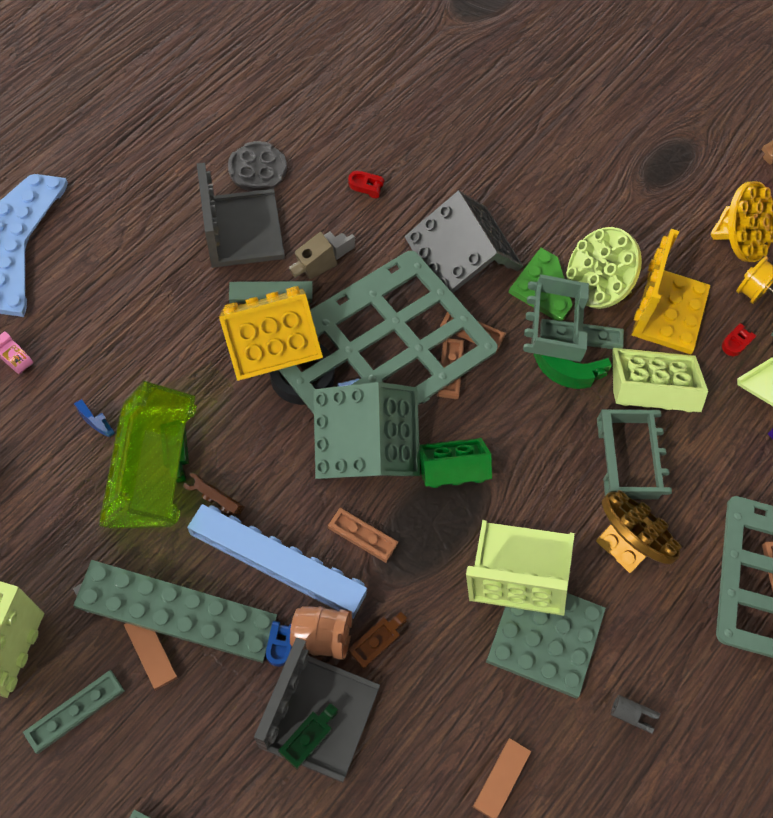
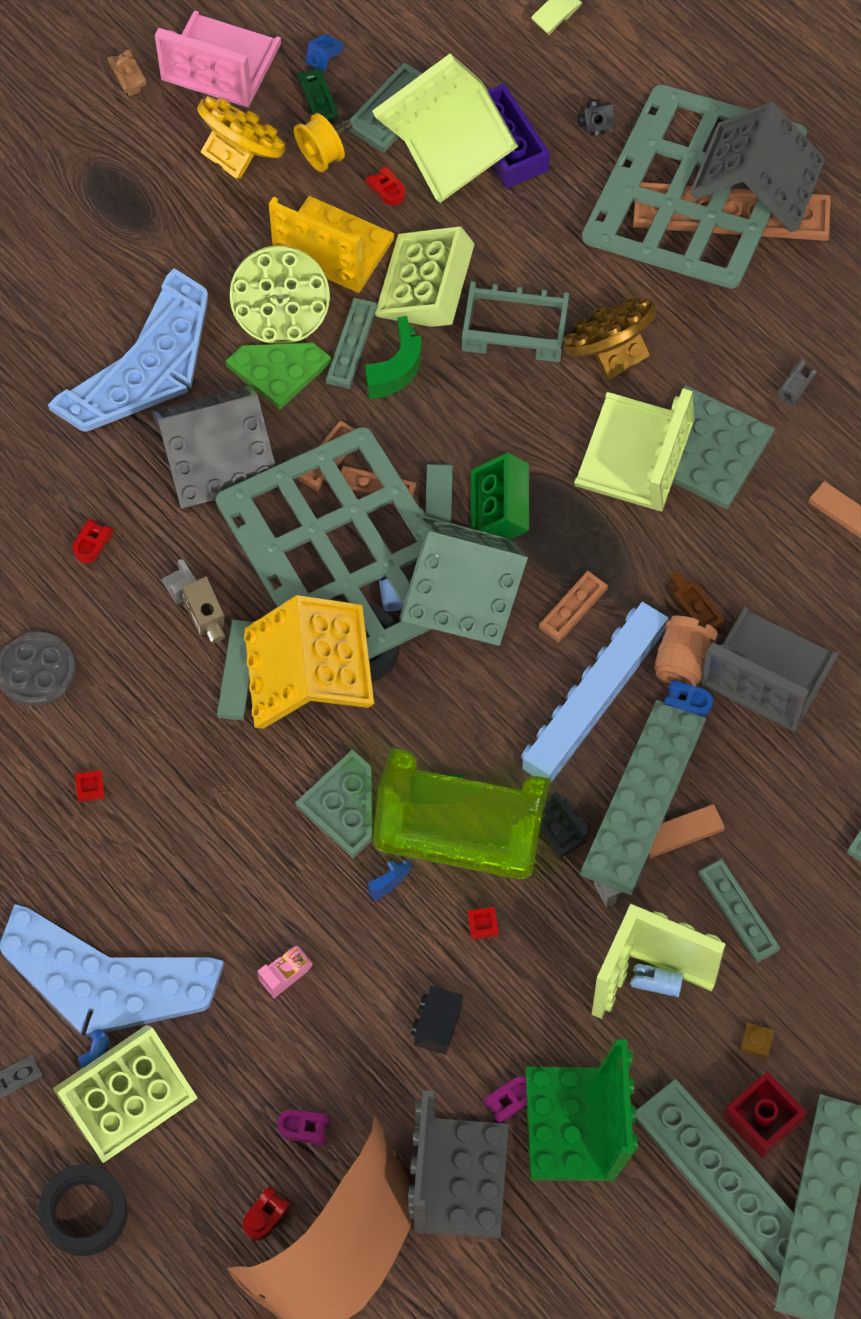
camera: 75 degrees left, 0 degrees up
(55, 493) = (482, 923): none -> red plate
(144, 545) = (561, 827): none -> black bracket
(160, 368) = (343, 804): none -> sand green plate
(162, 209) = (89, 786): none -> red plate
(213, 494) = (506, 753): reddish brown plate -> none
(239, 225) = (134, 693): dark grey bracket -> none
(308, 737) = (793, 670): dark green plate -> none
(448, 415) = (439, 492): none -> sand green tile
(533, 204) = (145, 373): none -> light blue wing
(555, 348) = (315, 328): sand green hinge -> none

